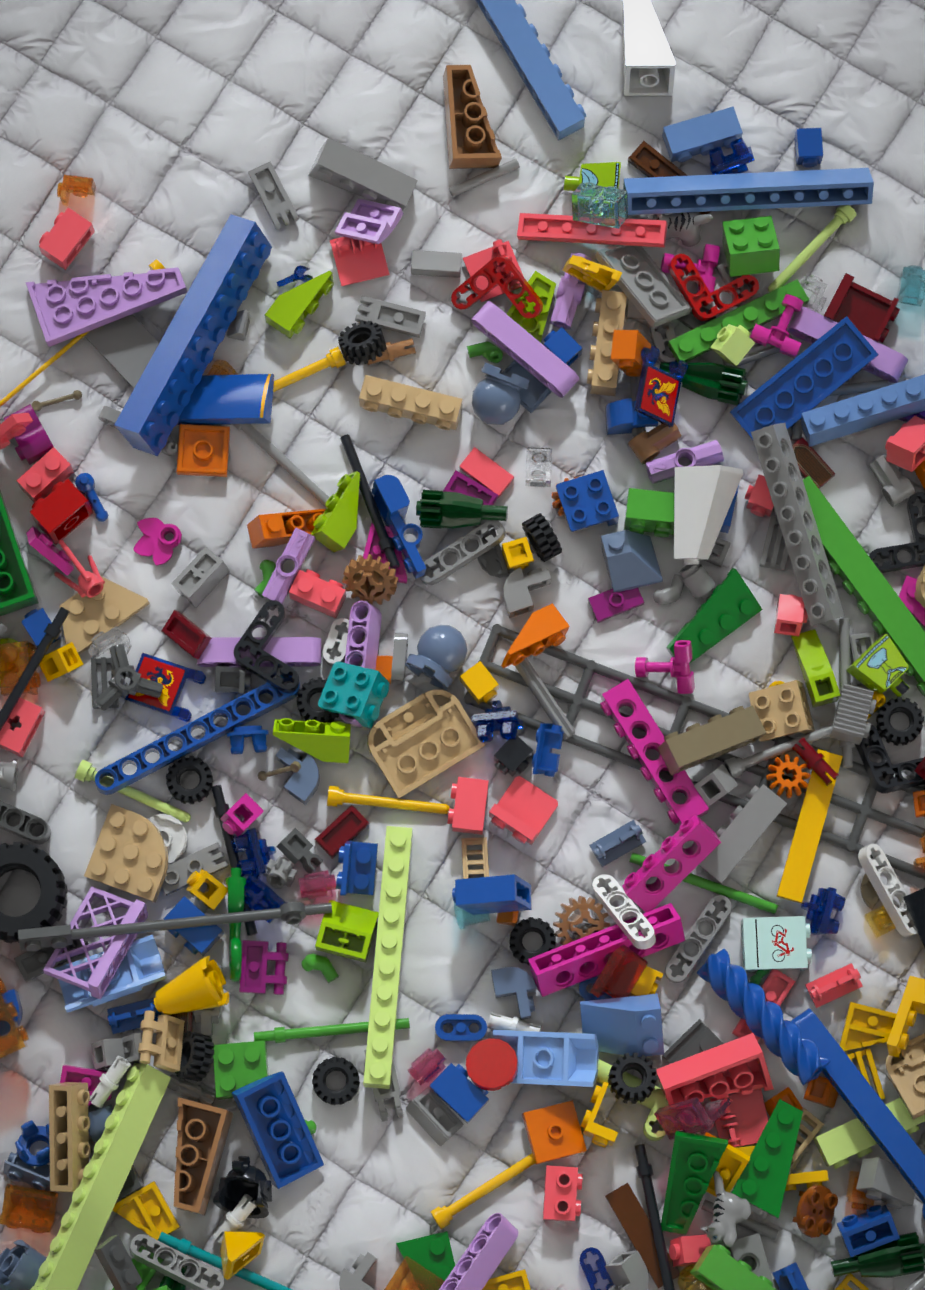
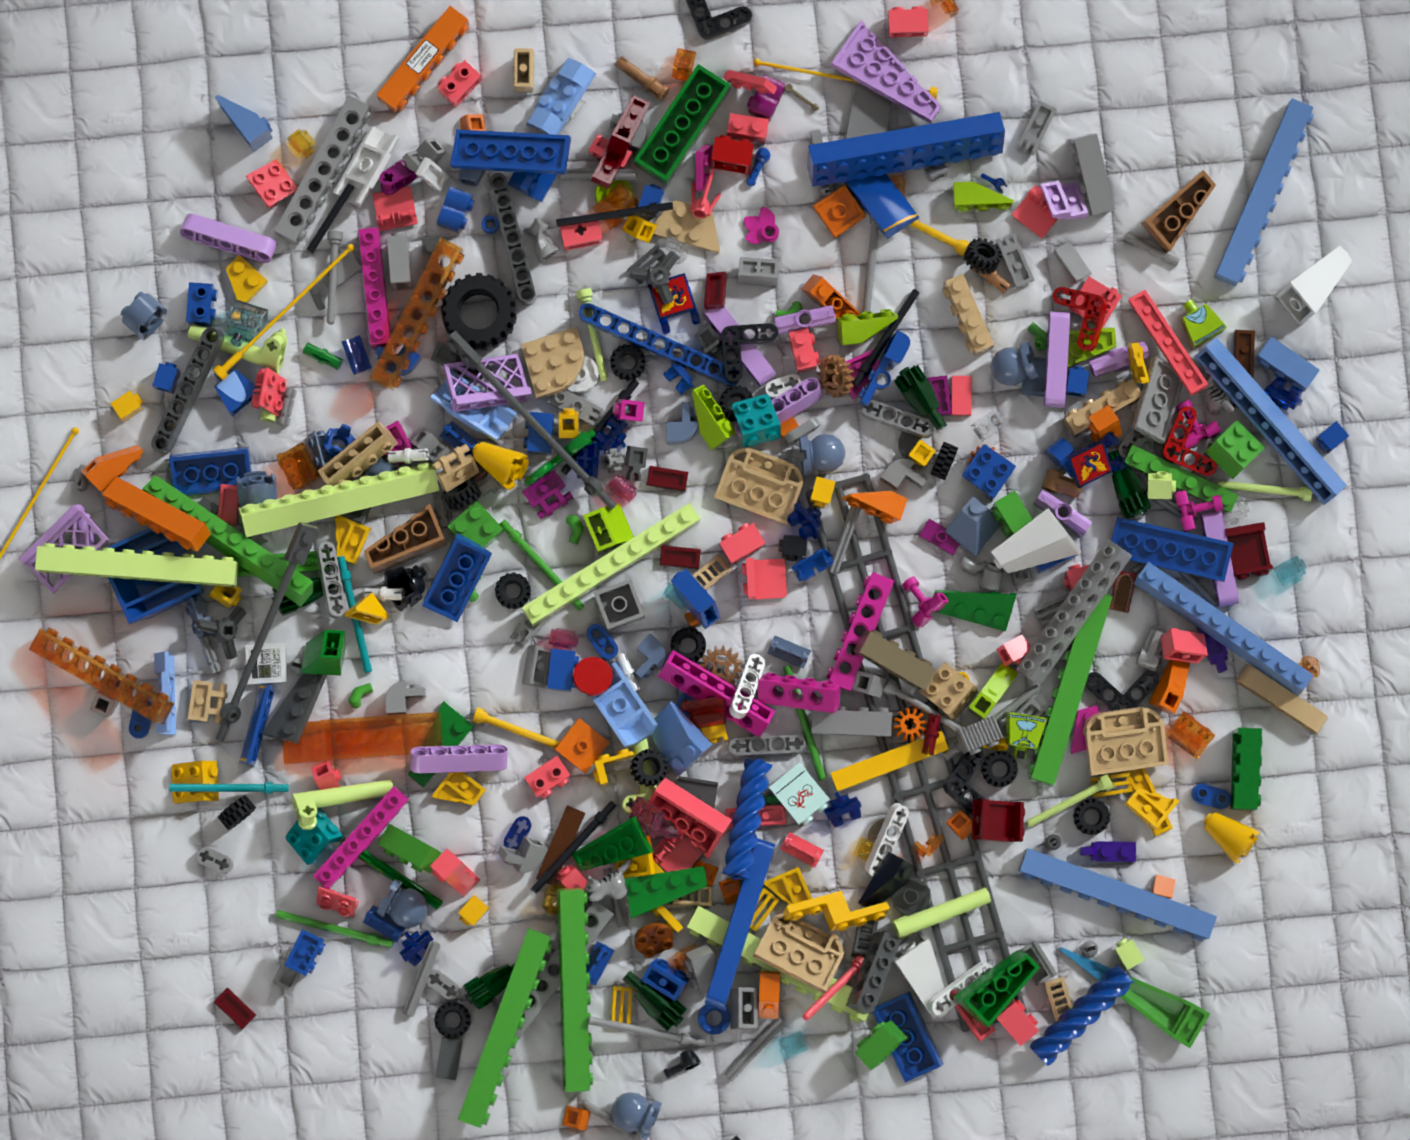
camera: 50 degrees right, 5 degrees up
(295, 767) = (683, 419): dark tan hinge -> none
(338, 796) = (686, 459): yellow piece -> none
(359, 868) = (651, 504): blue bracket -> none
(433, 880) = (680, 557): none -> dark red tile
(437, 980) = (619, 605): none -> light grey brick
(600, 205) = (1185, 335): clear light blue brick -> none

